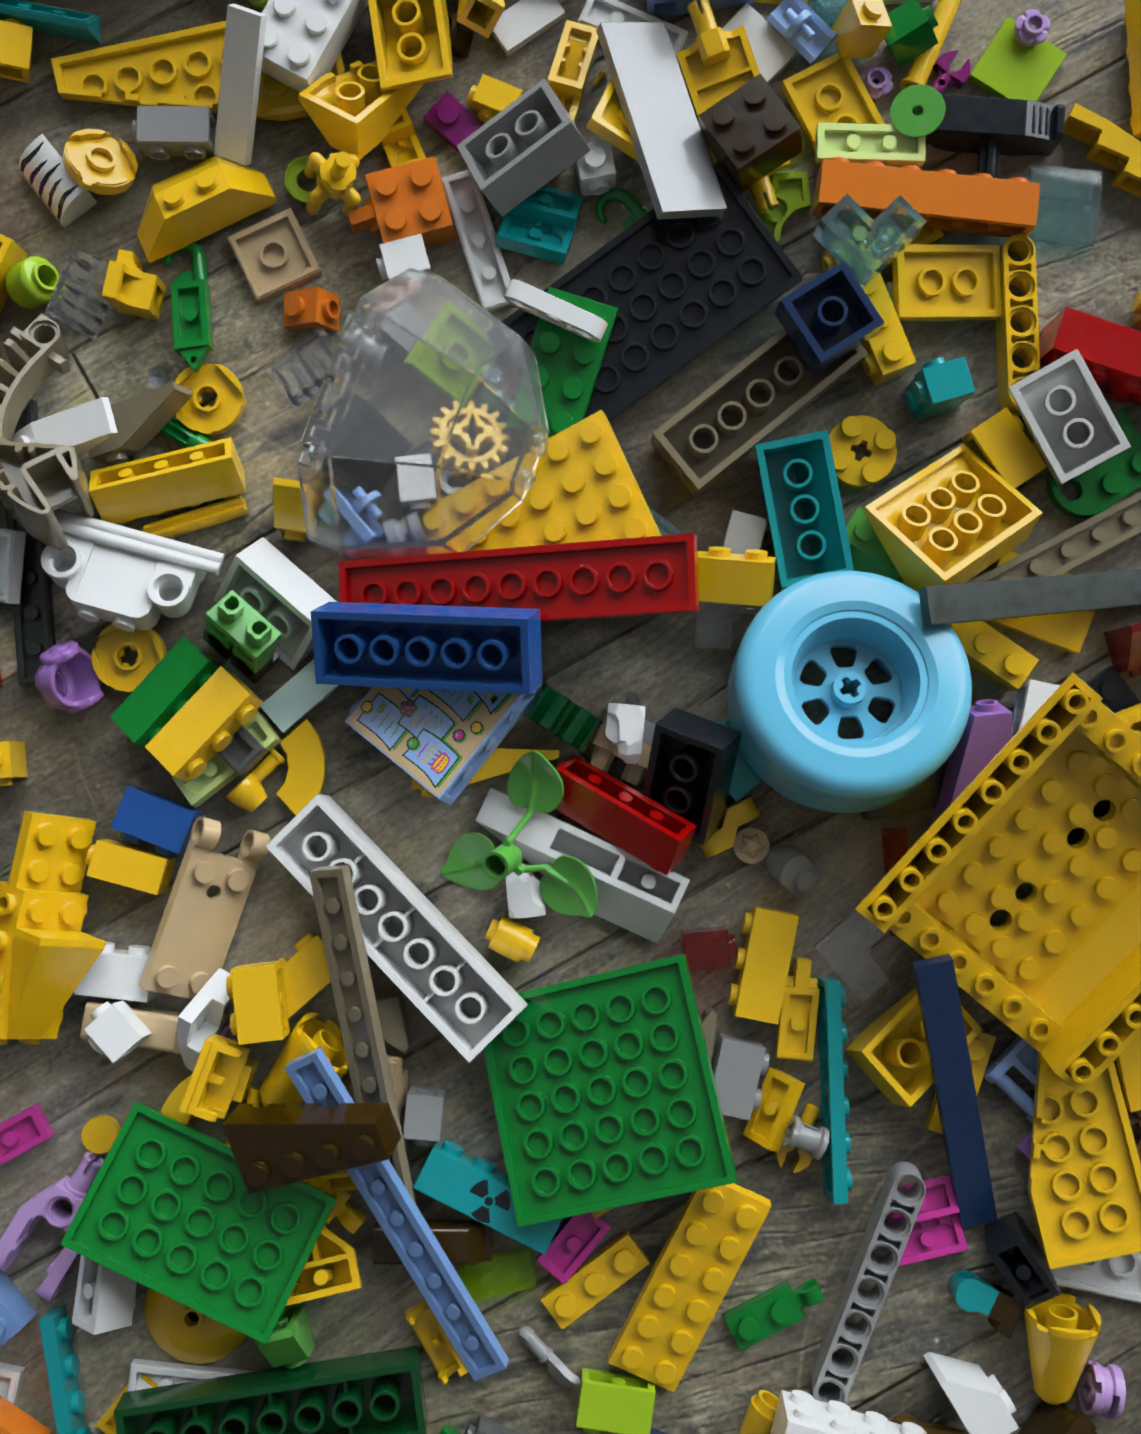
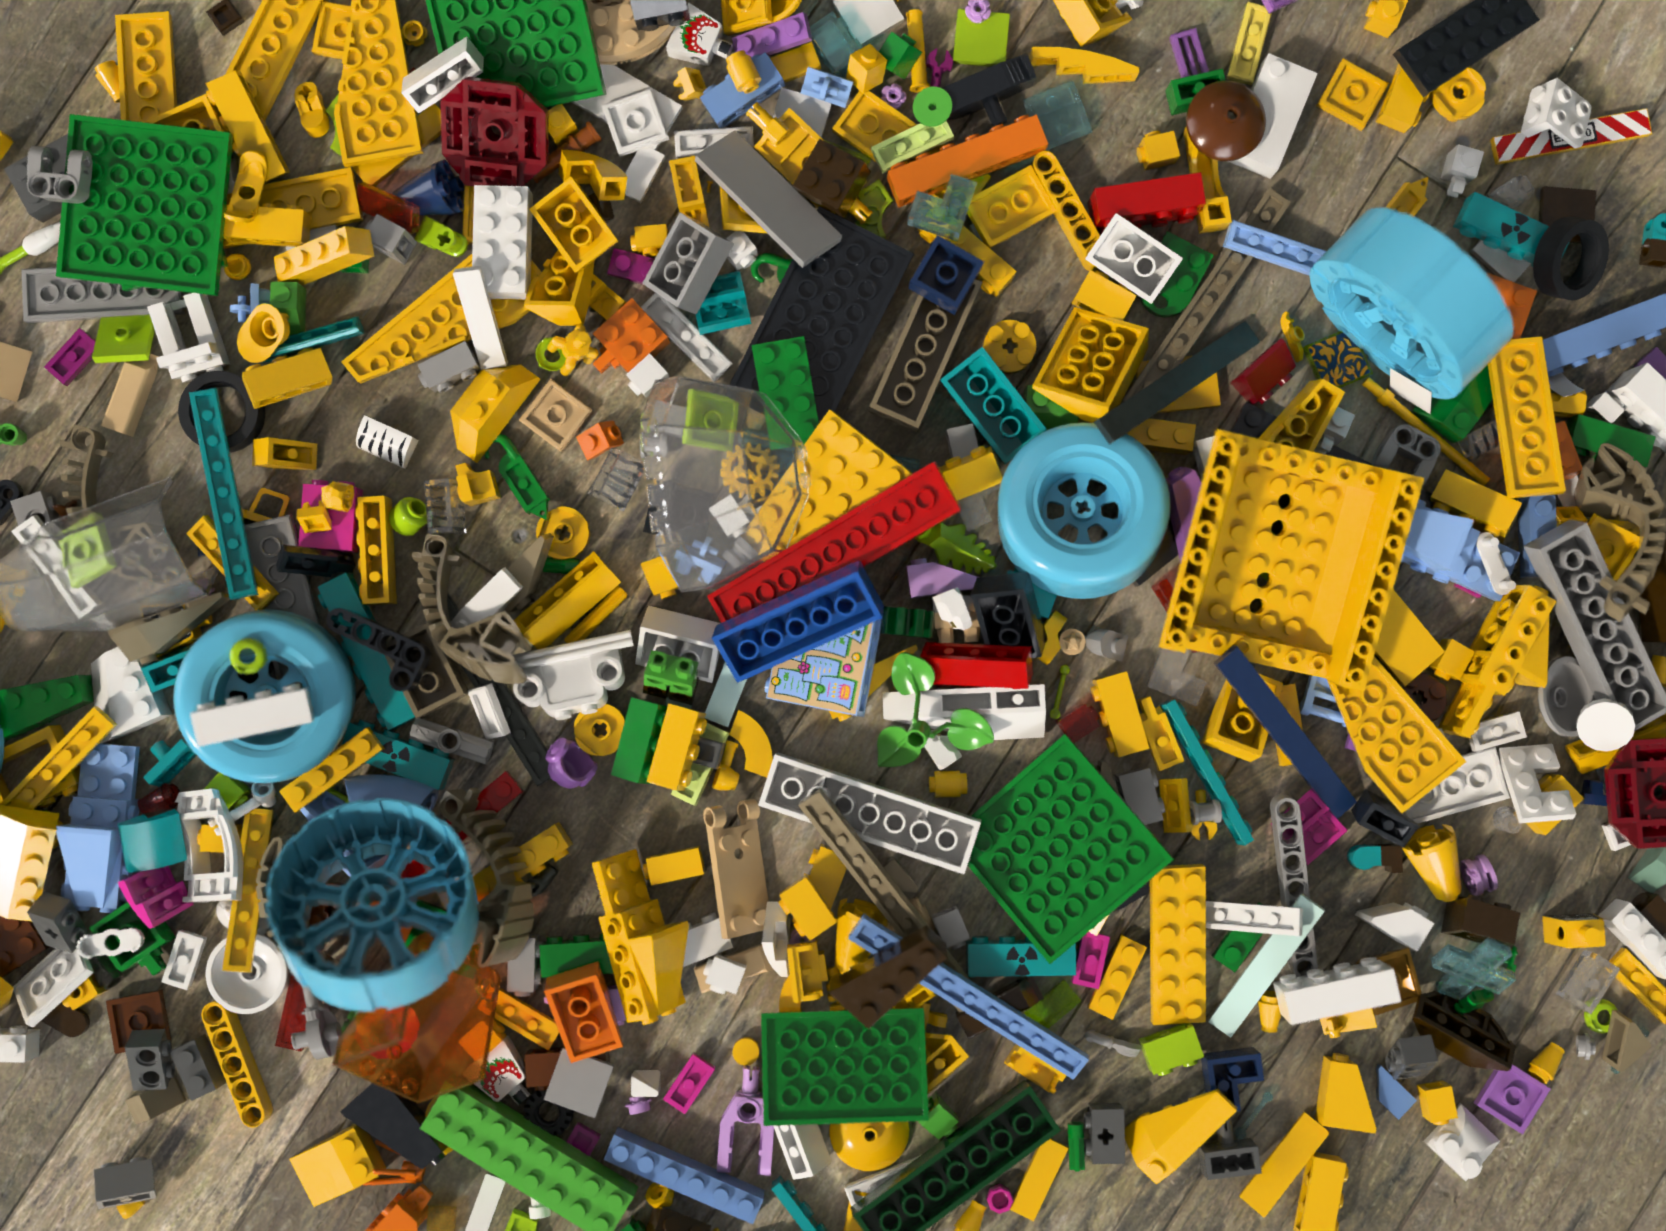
camera: 30 degrees left, 0 degrees up
(99, 162) = (410, 413): yellow tile -> none
(155, 820) = (676, 826): blue brick -> none
(555, 310) = (766, 360): white beam -> none
(624, 683) = (933, 579): none -> lavender slope
(668, 655) = (953, 546): none -> lime plant
(685, 920) = (1055, 713): none -> lime hinge
(784, 1364) = (1262, 971): none -> light aqua tile
(799, 1302) = (1254, 918): none -> white plate
(939, 388) = (1039, 280): teal brick -> none

